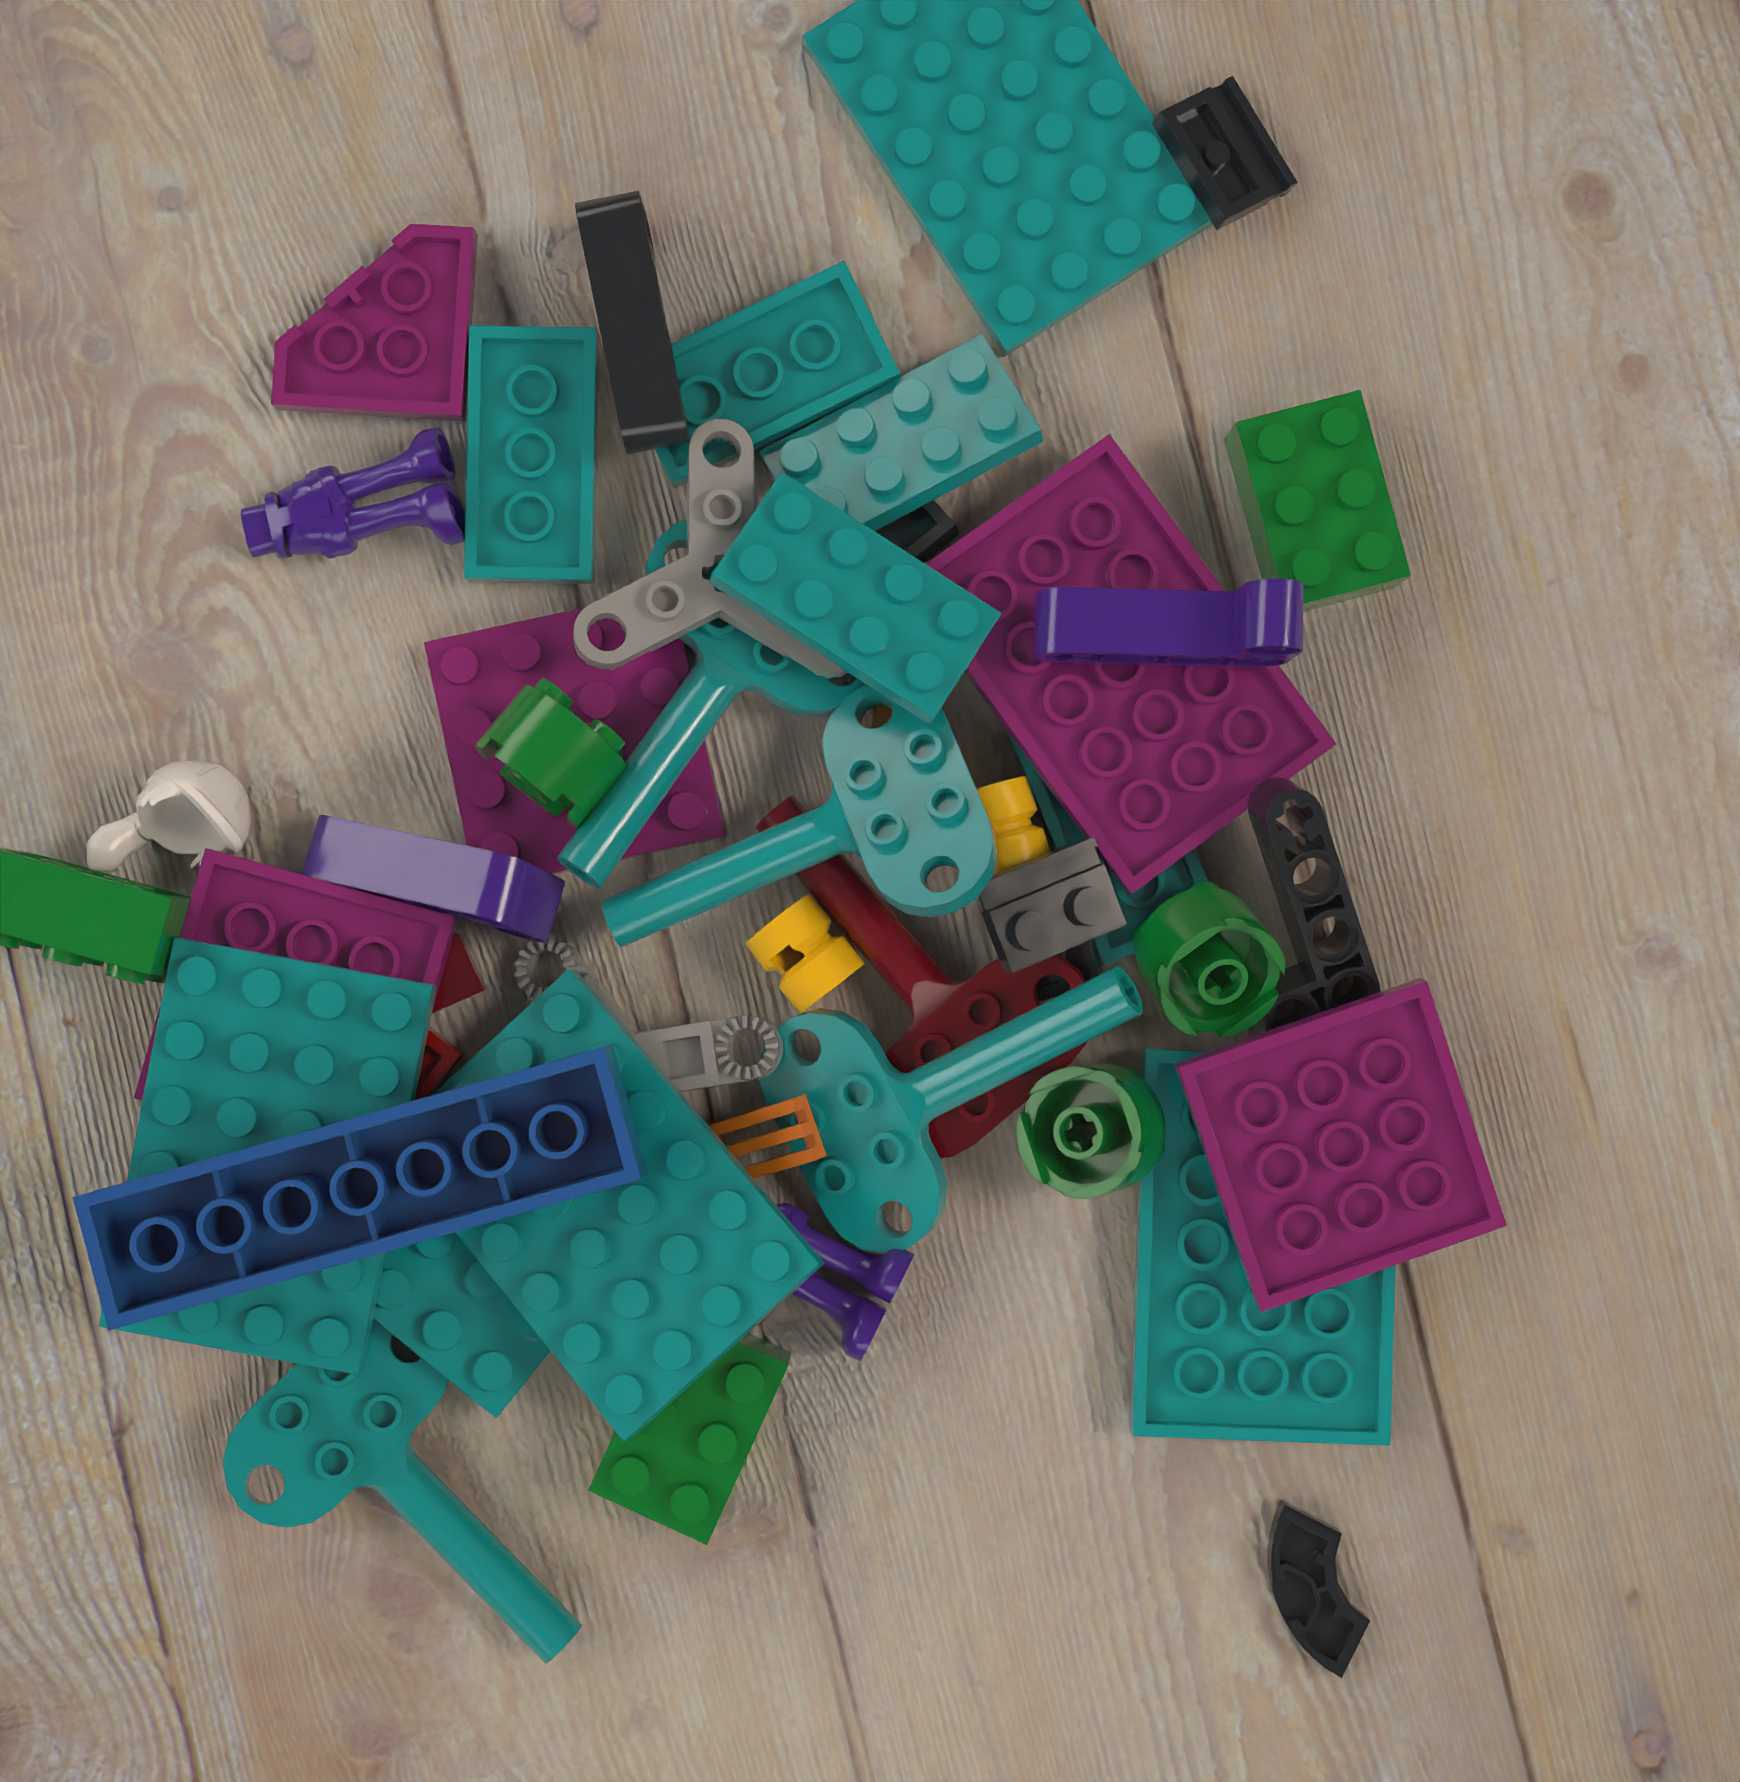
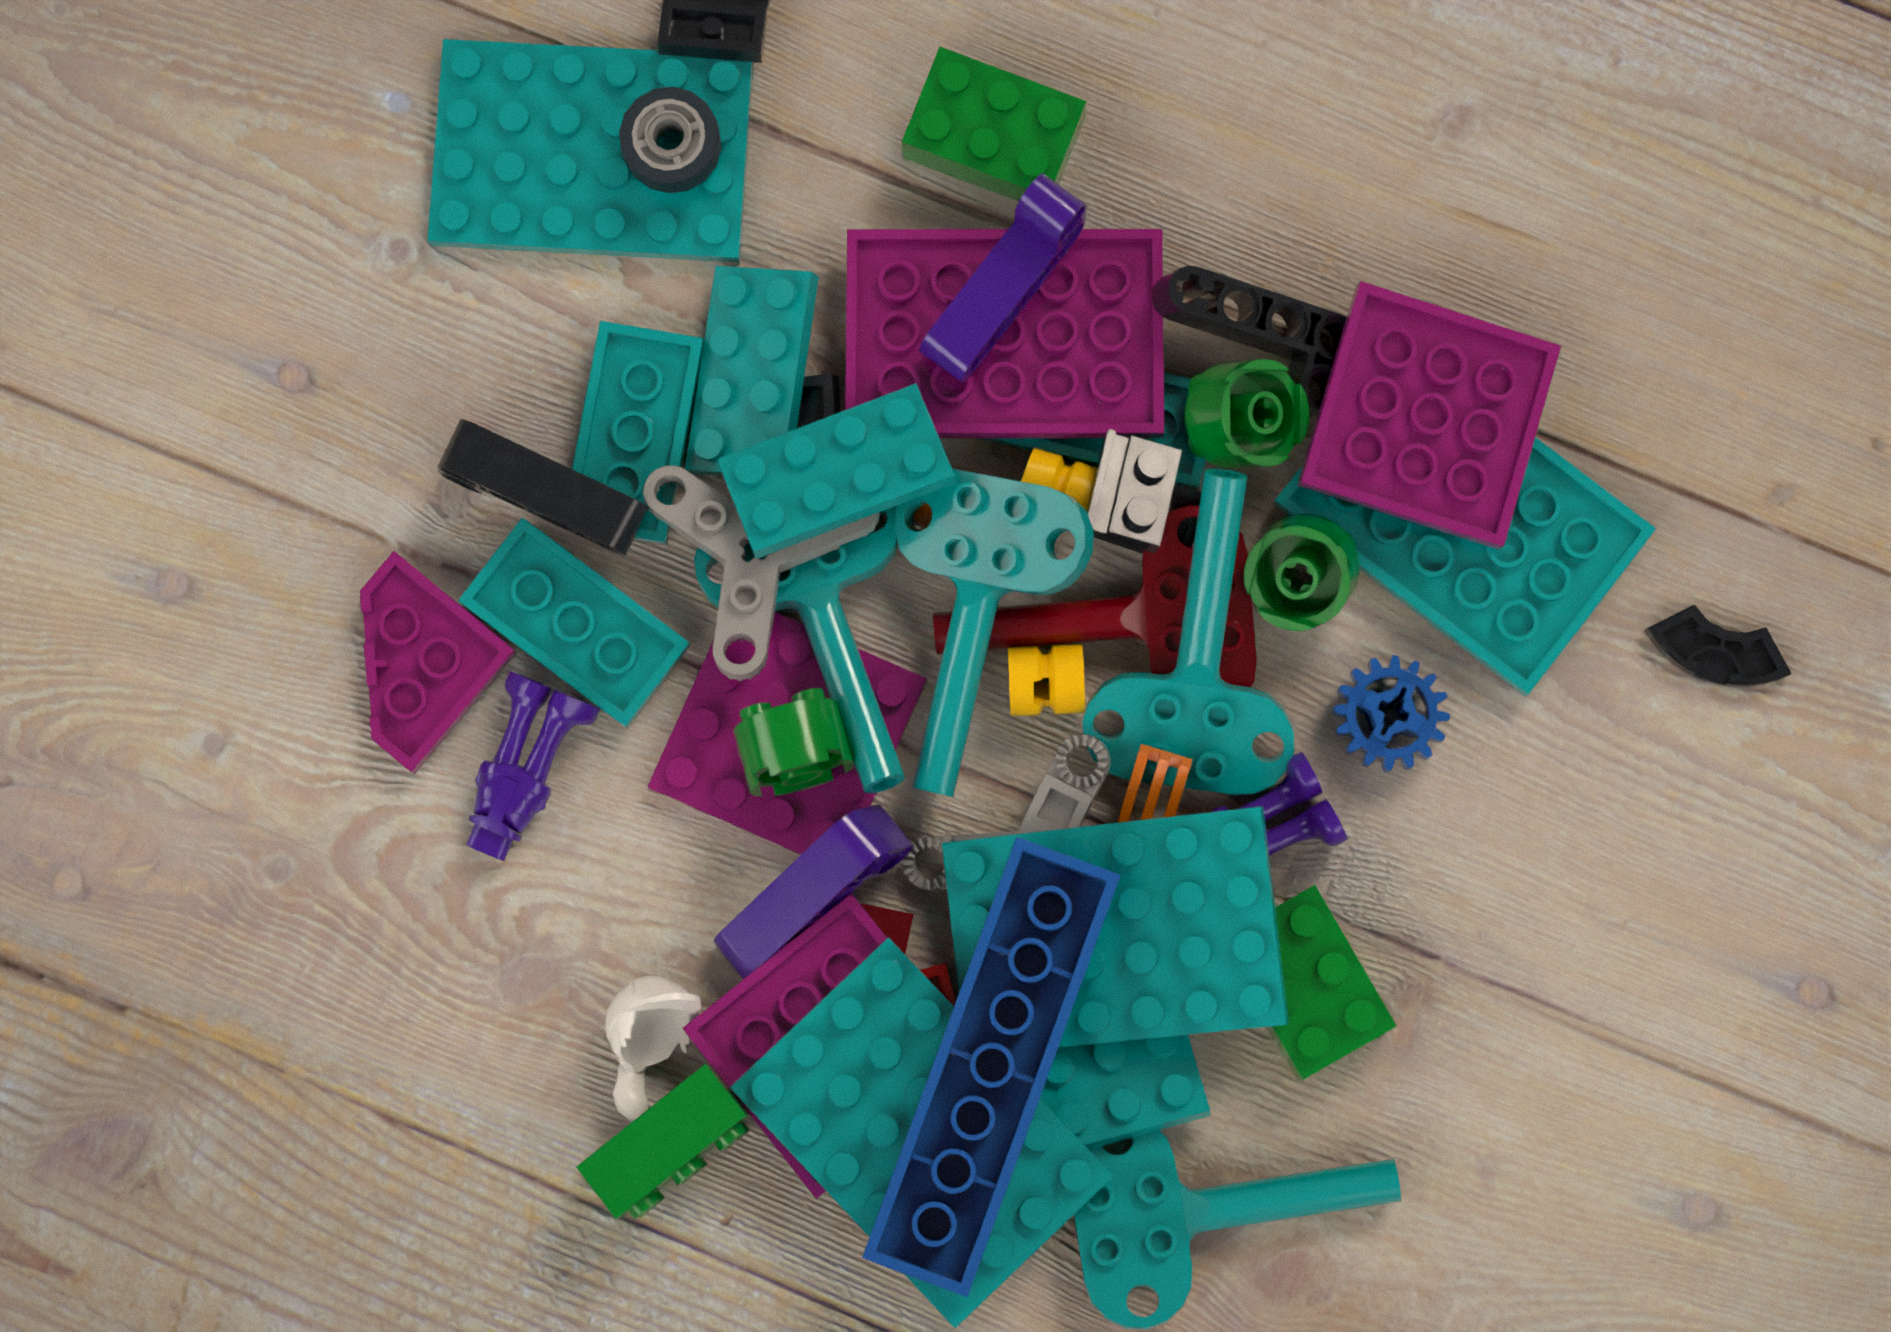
camera: 45 degrees left, 5 degrees down
(1045, 1307) = (1413, 723): none -> blue gear
(1078, 158) = (670, 111): none -> wheel

